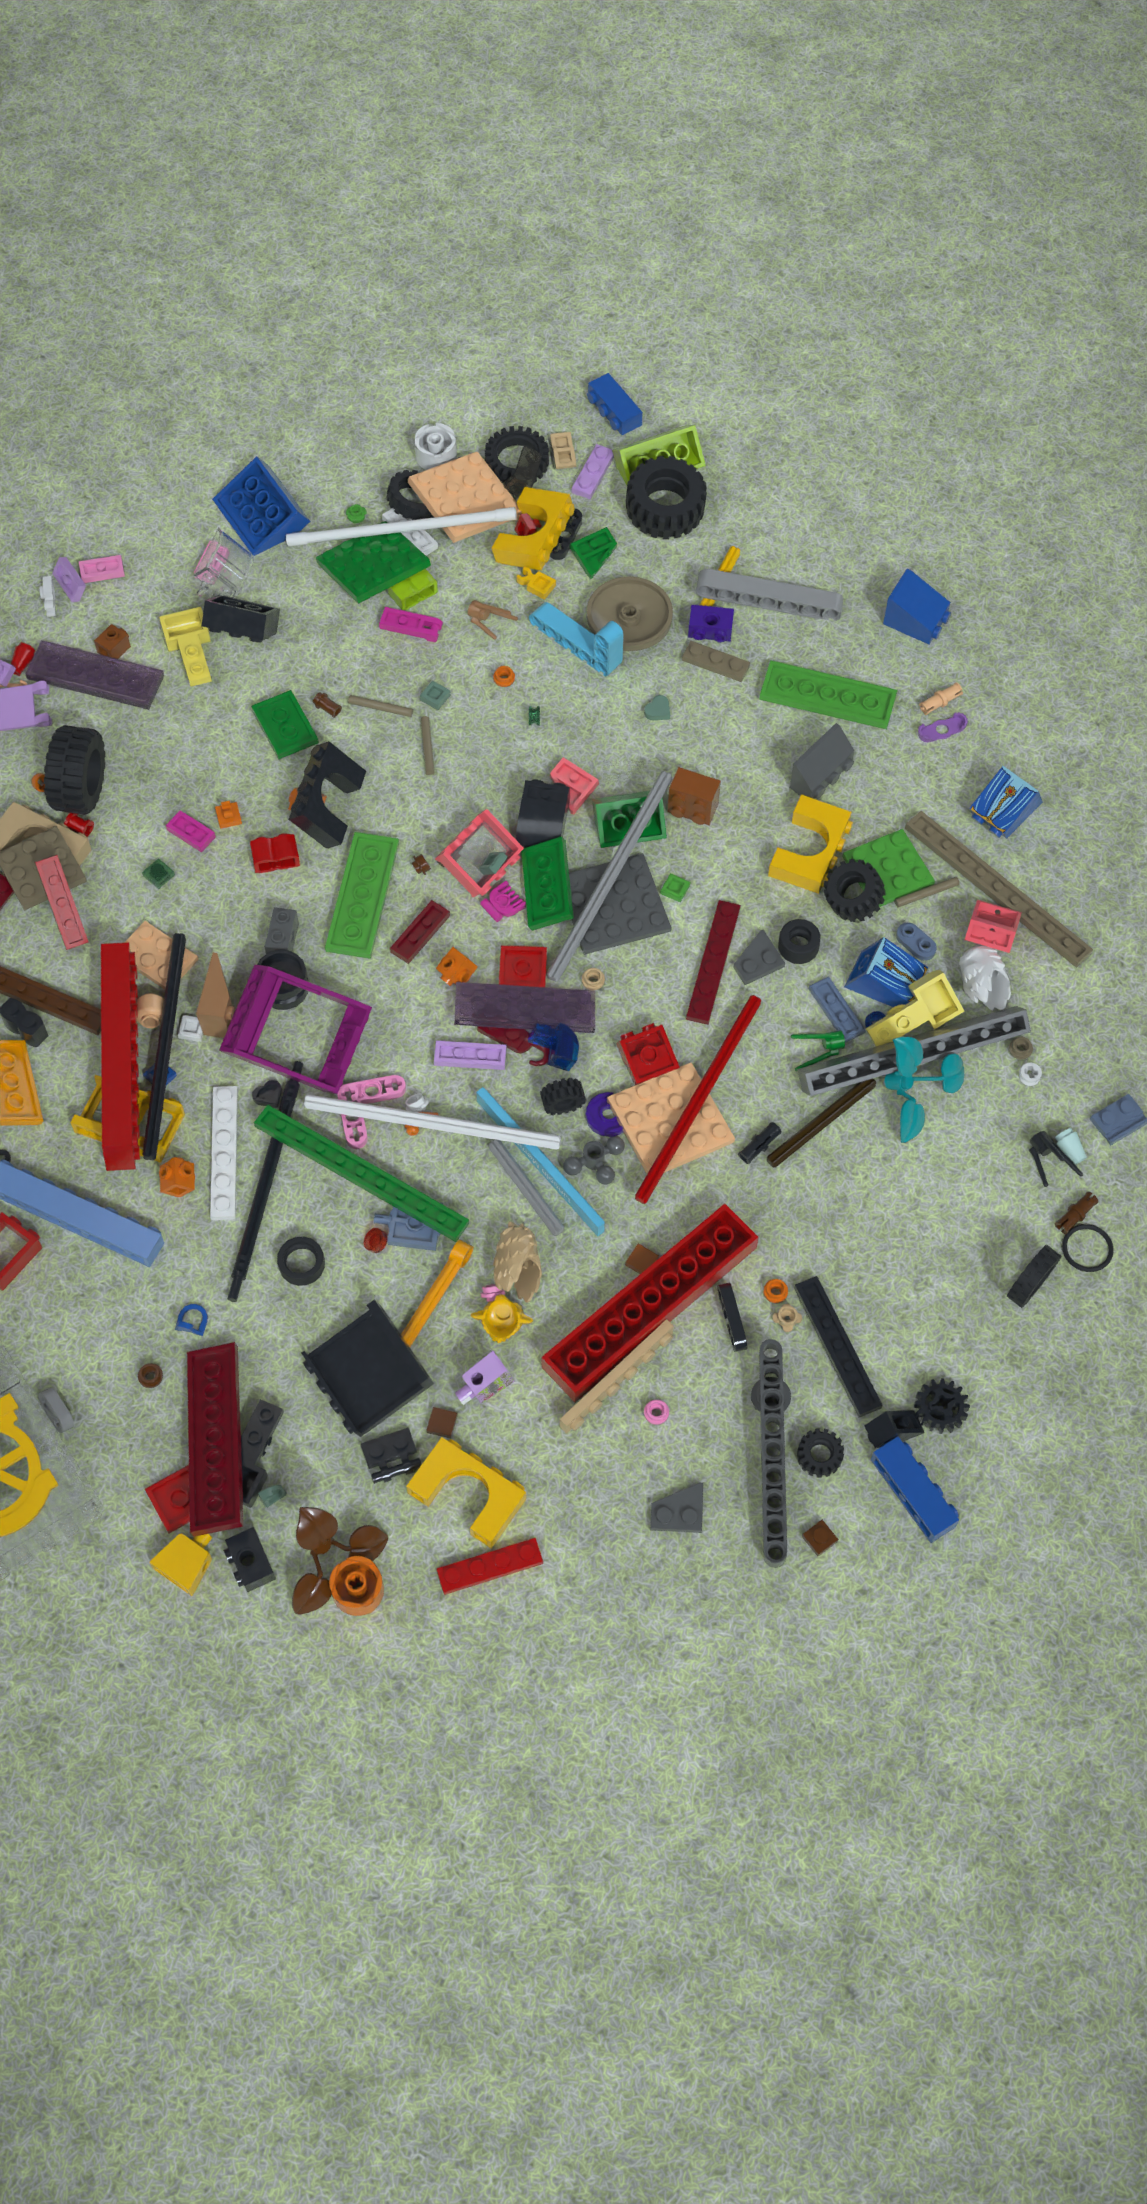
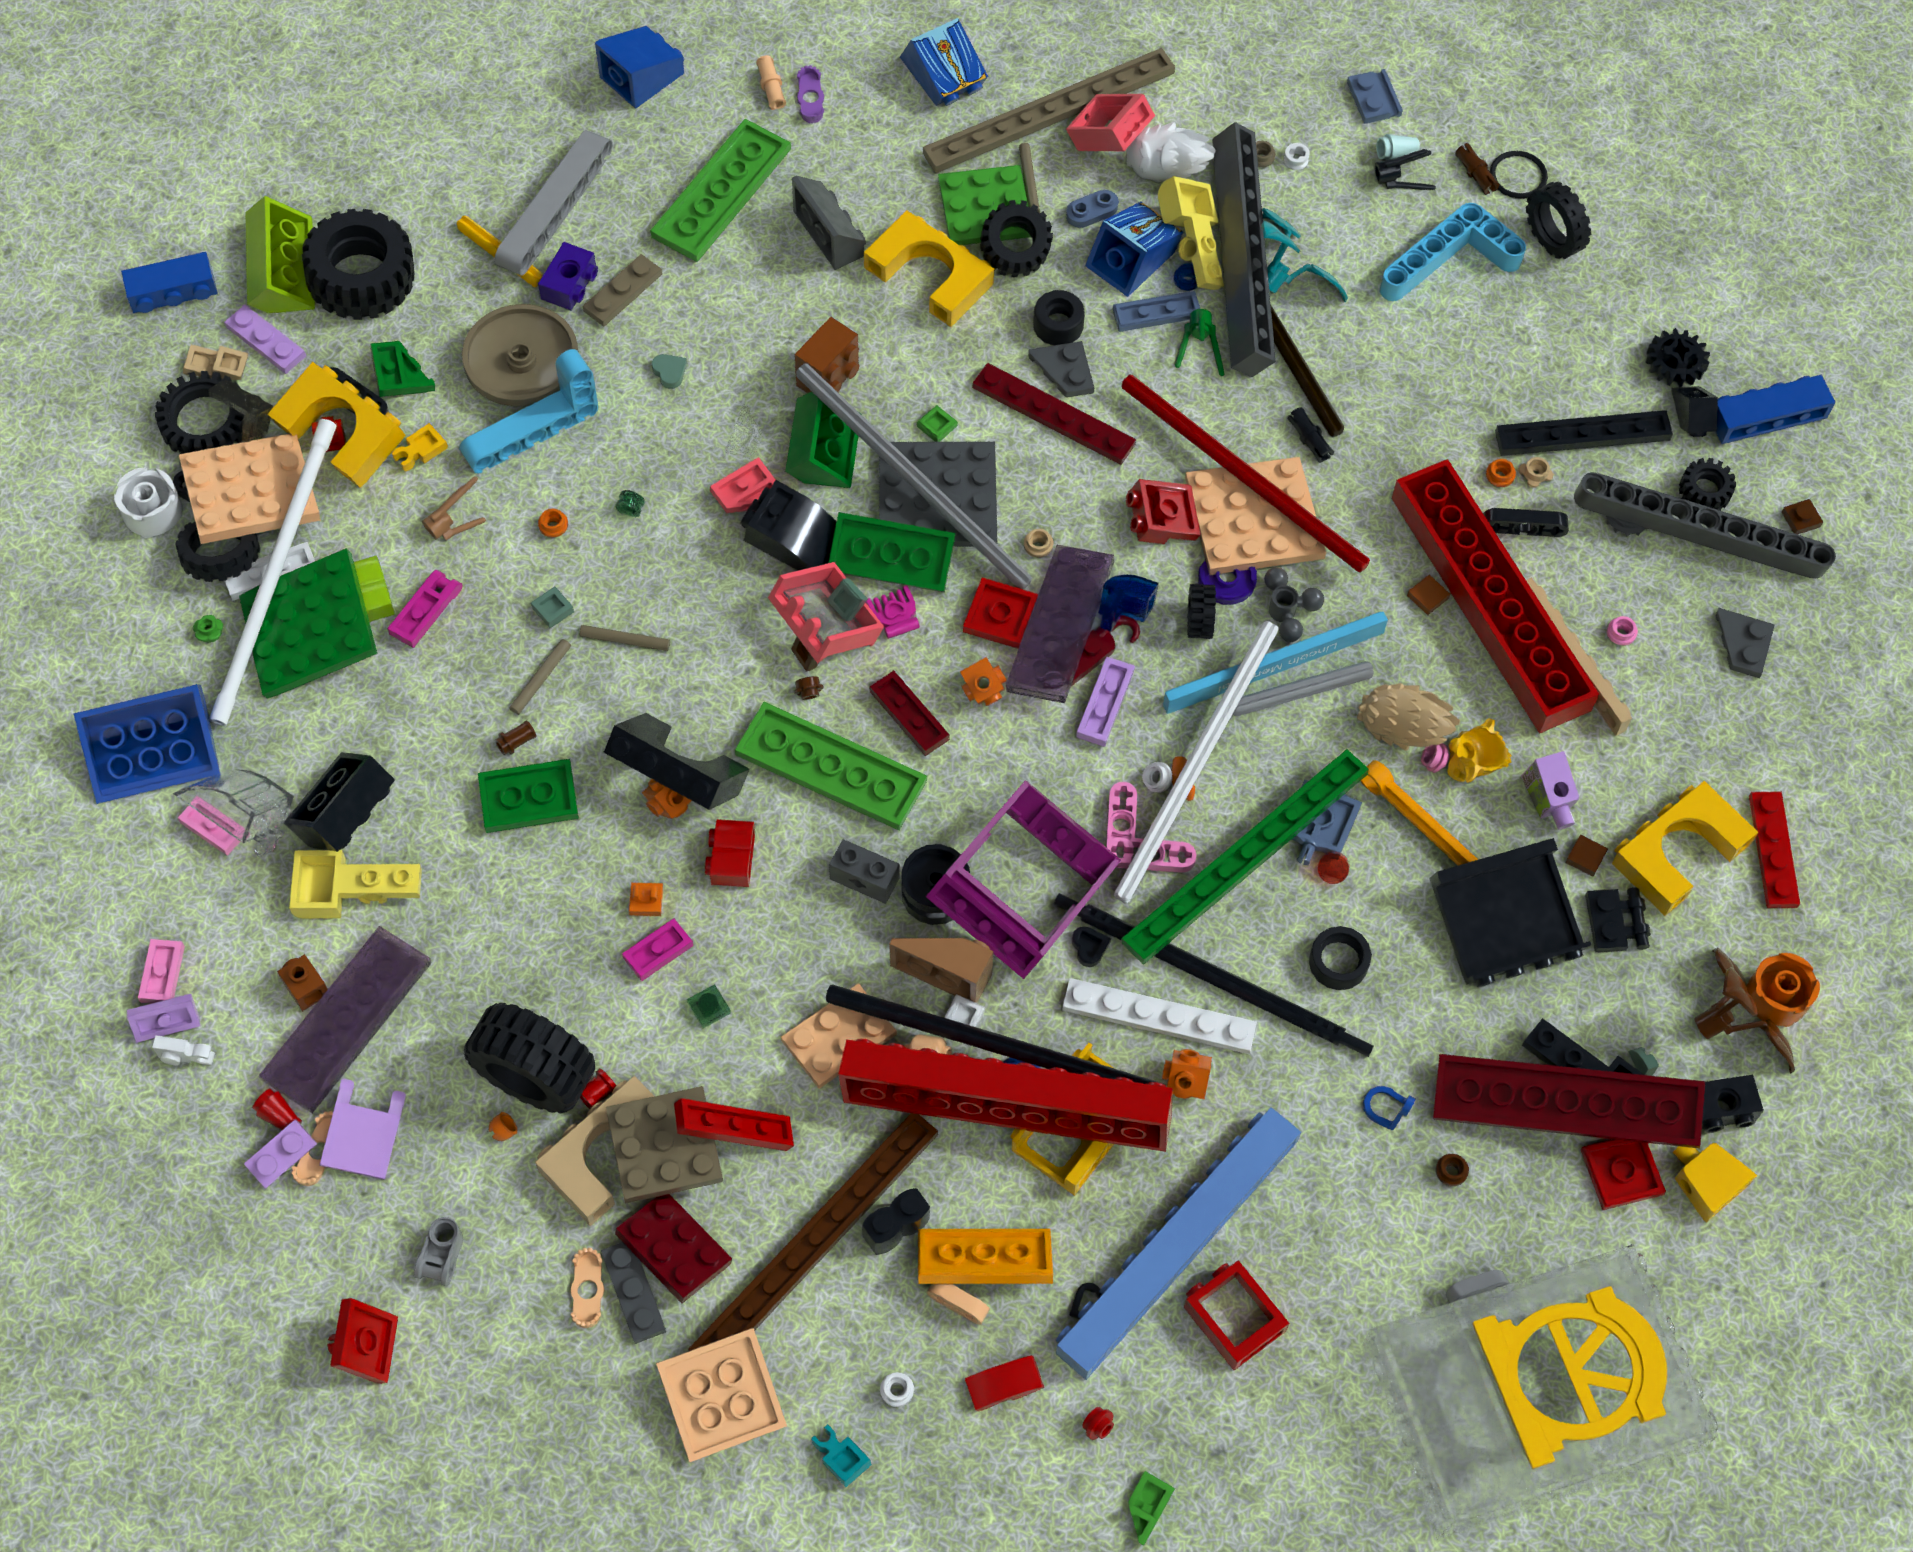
camera: 75 degrees left, 0 degrees up
(979, 1203) = (1464, 226): none -> medium azure beam

